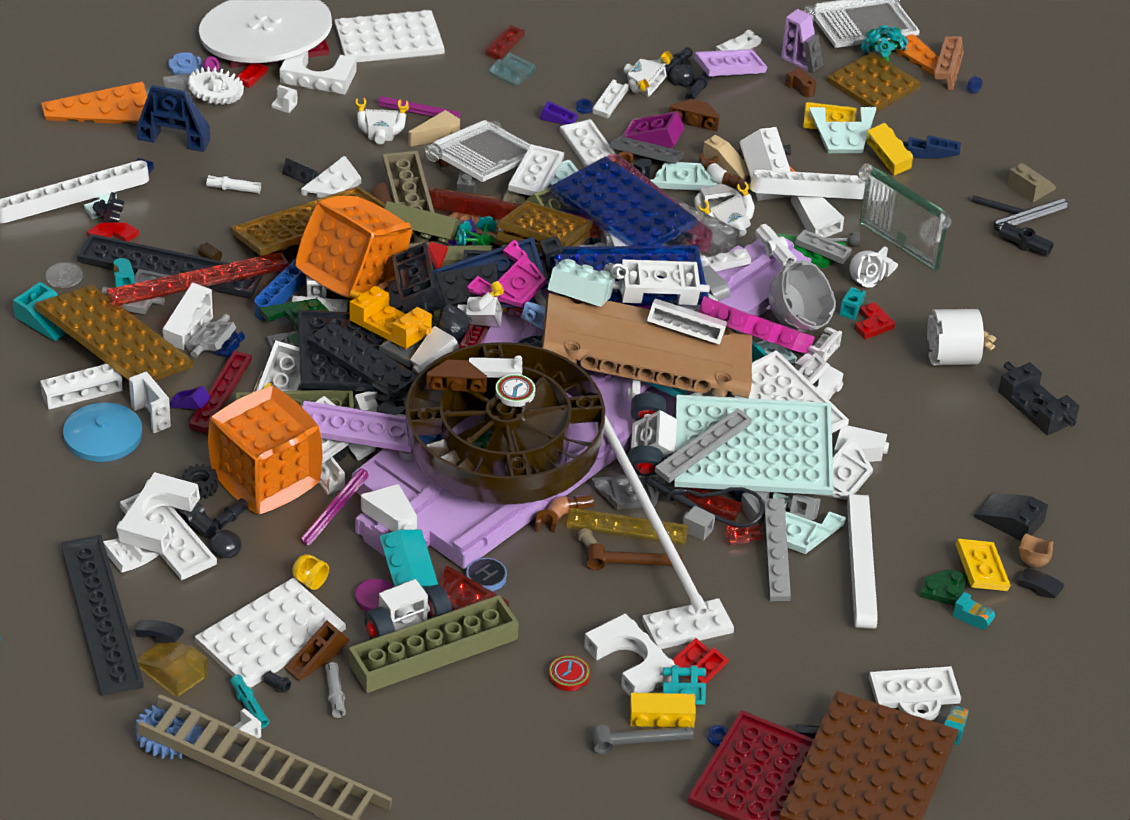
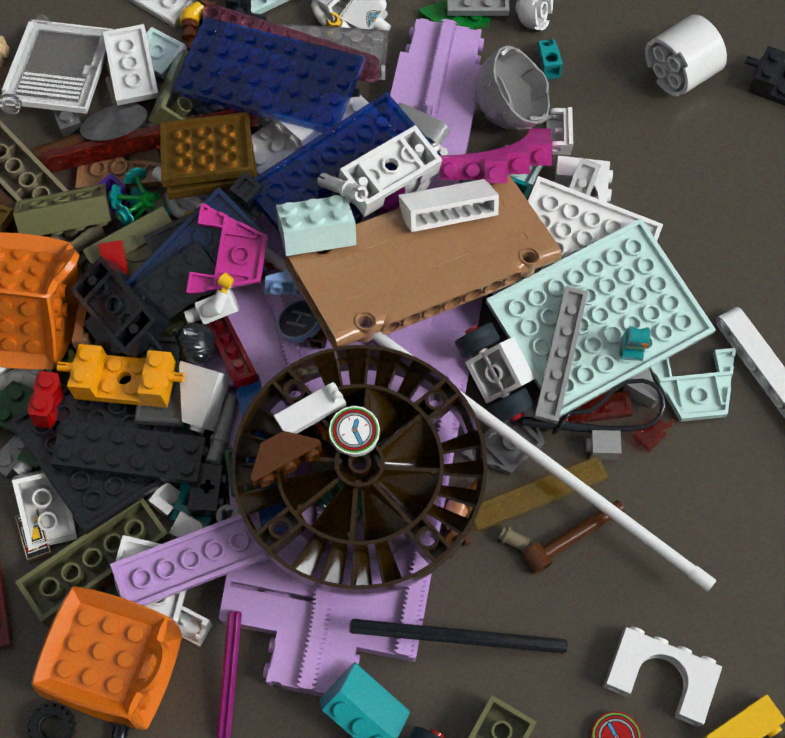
camera: 30 degrees left, 25 degrees up
(330, 306) = (44, 402): none -> red brick
(389, 508) = (306, 657): white slope -> none
(463, 590) = (444, 703): clear red wing -> none
(487, 573) = (442, 659): black tile -> none
(497, 195) = (113, 122): none -> flat silver sticker
(504, 557) = (458, 636): none -> black axle
(634, 390) = (446, 325): white plate -> none
(683, 625) = (674, 595): white plate -> none
(691, 687) = (749, 689): teal plate -> none
(699, 655) = (728, 634): red slope -> none
(727, 260) = (408, 80): white plate -> none
(761, 460) = (634, 343): none -> teal leg
(775, 245) = (446, 37): white piece -> none
(777, 549) = (704, 434): light grey plate -> none
(811, 510) = (690, 360): light grey brick -> none
(849, 470) = (701, 279): white wing -> none
(871, 442) = (684, 240): white slope -> none
(876, 321) = (585, 68): red plate -> none

